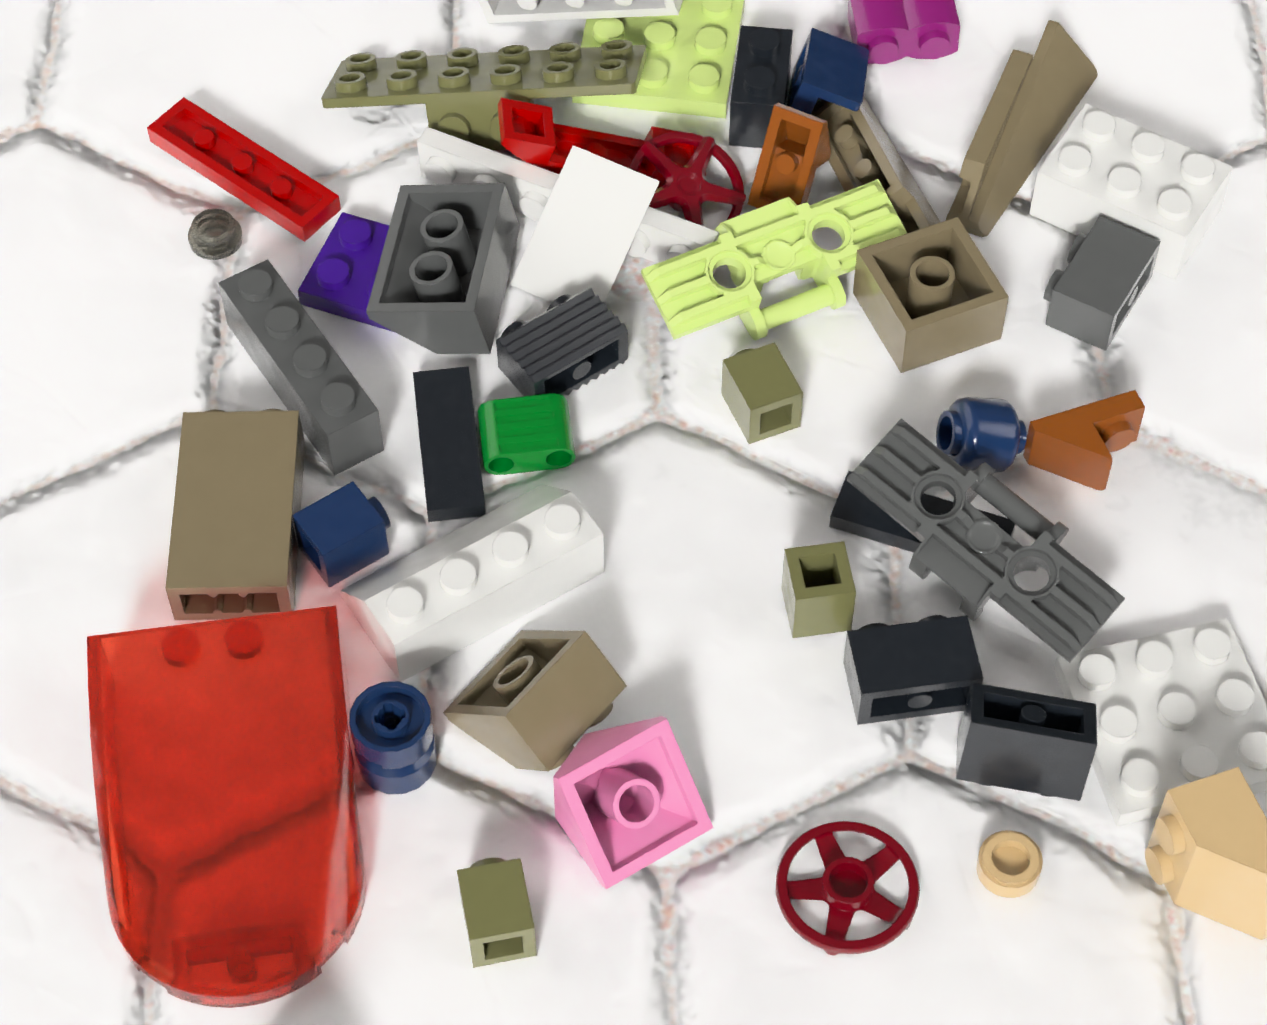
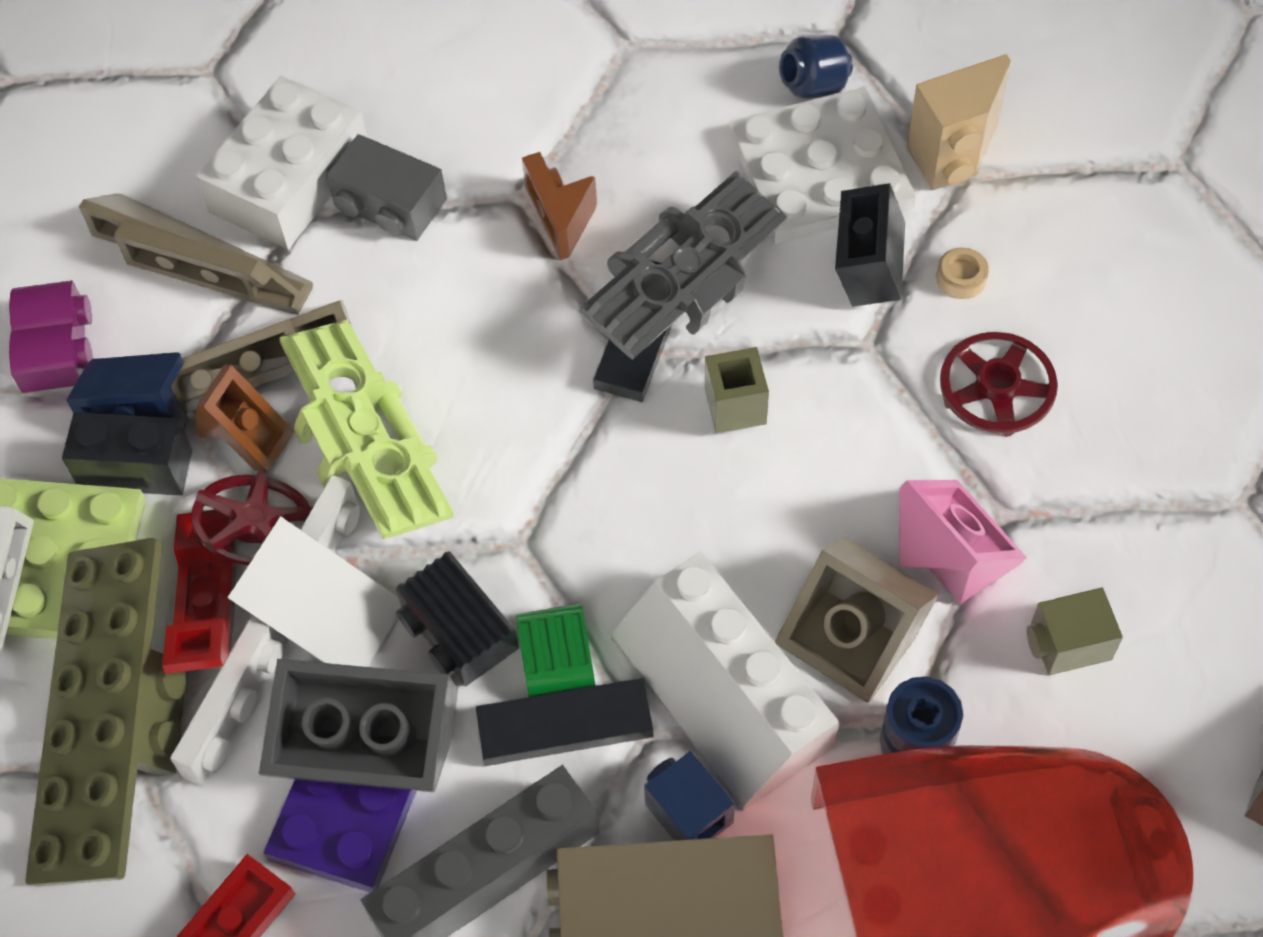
camera: 90 degrees left, 5 degrees up
(761, 392) = (509, 446): olive brick -> none
(910, 668) = (799, 329): black brick -> none
(929, 294) = (408, 307): dark tan brick -> none
(981, 432) = (556, 277): dark blue head -> none

